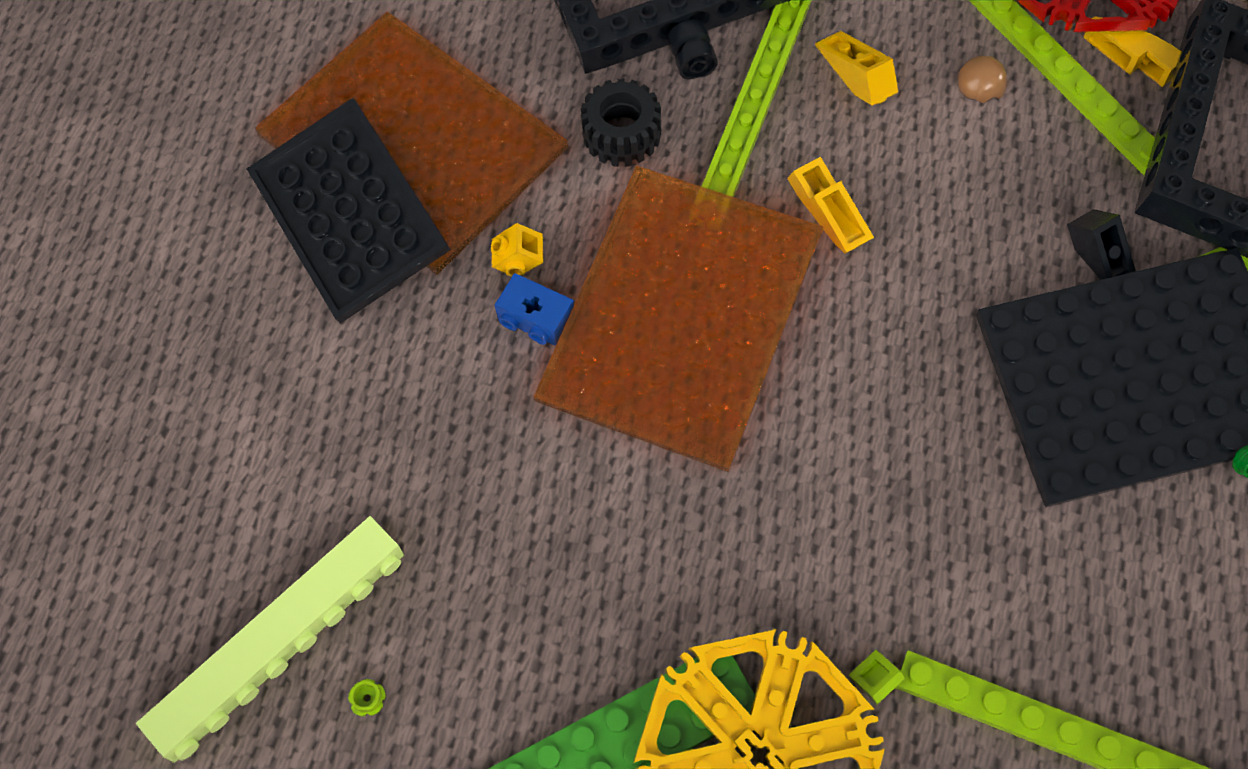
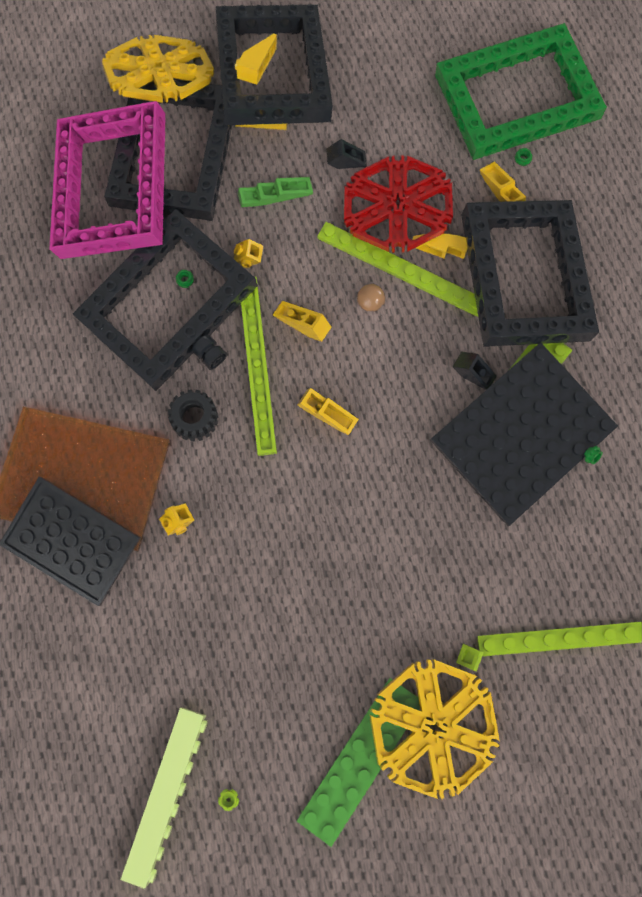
camera: 30 degrees left, 10 degrees up
(525, 297) = (194, 542): blue brick -> none
(680, 317) = (281, 514): clear orange plate -> none

